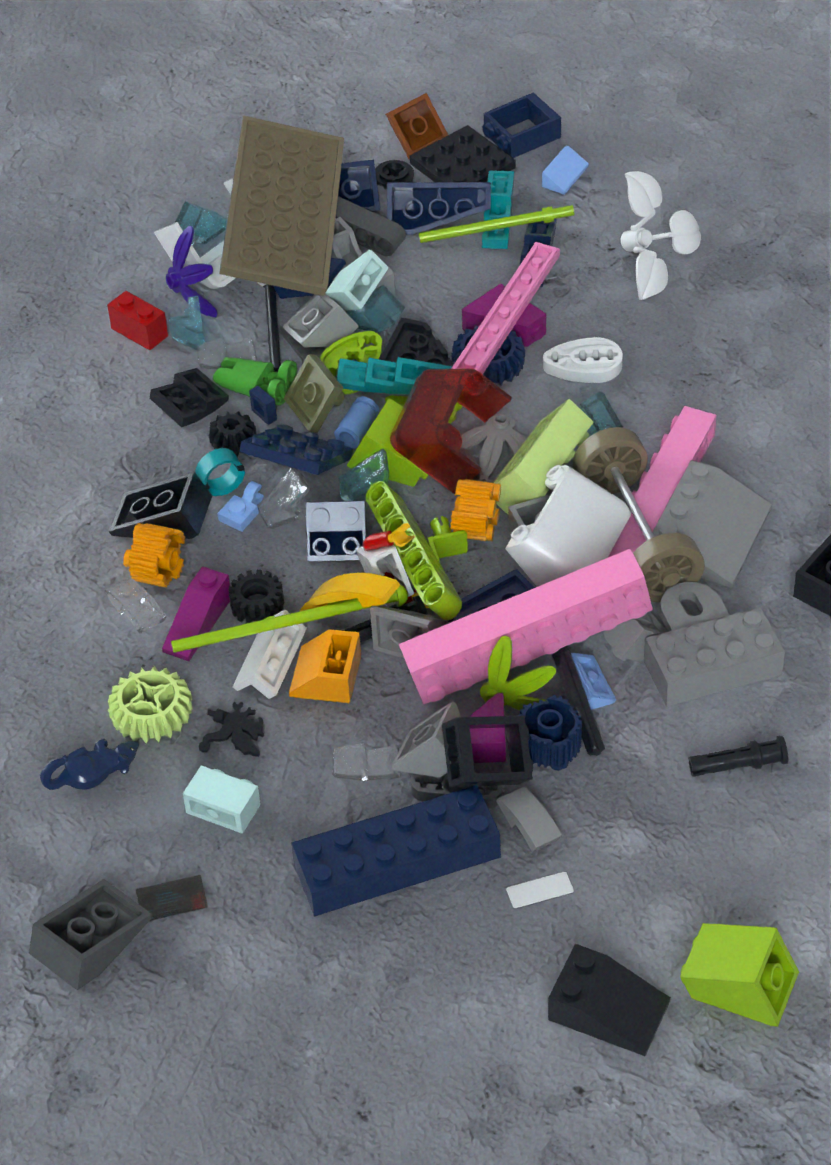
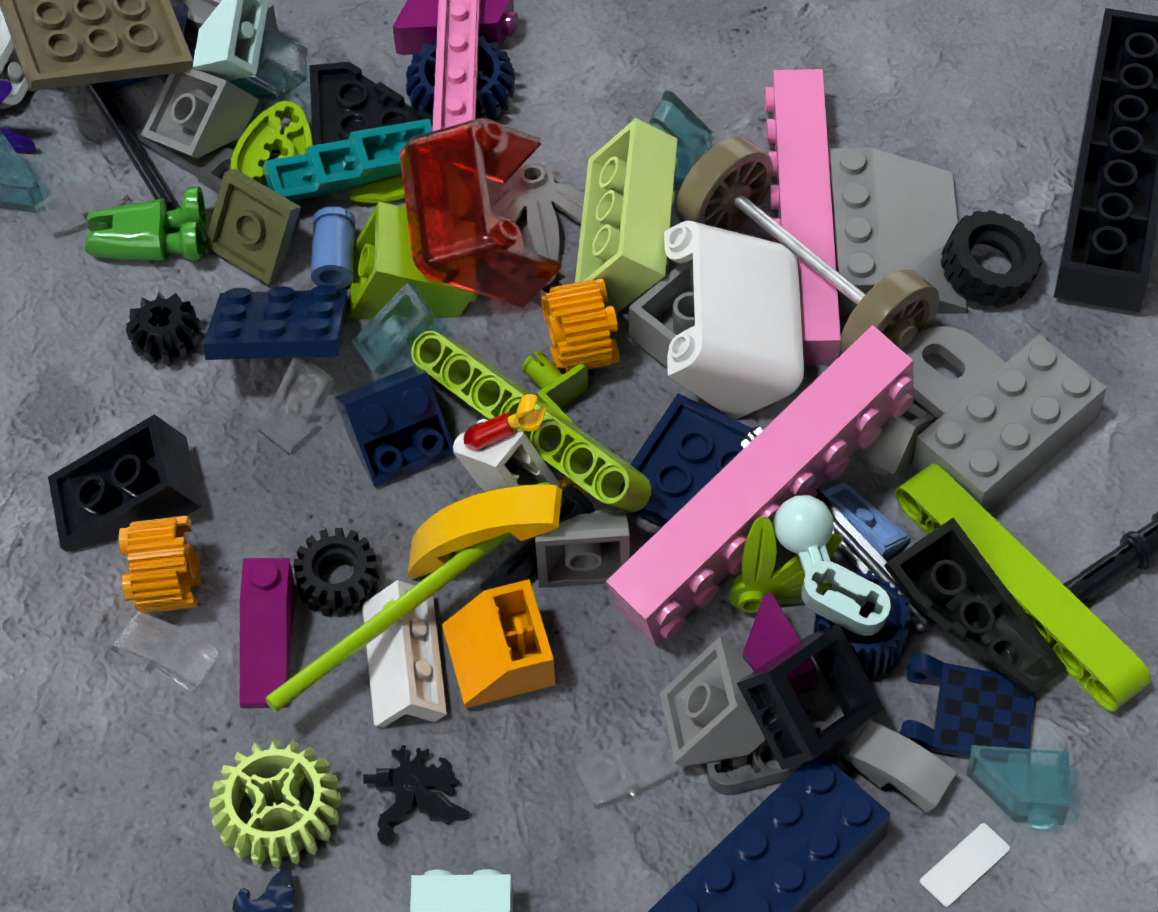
camera: 25 degrees left, 10 degrees up
(189, 397) = (64, 291): black slope -> none
(228, 481) = (193, 404): teal piece -> none
(241, 511) = (238, 443): light blue plate -> none
(263, 405) = (183, 267): dark blue tile -> none
(531, 653) = (805, 527): none -> light aqua beam
(589, 371) = (579, 61): white piece -> none
(596, 809) = (970, 709): none -> dark blue flag
(601, 855) = (1024, 783): none -> clear light blue slope
(623, 739) = (965, 596): none -> pearl dark grey wedge
(667, 750) = (1078, 637): none -> lime beam
(770, 541) = (1006, 236): none -> black tyre

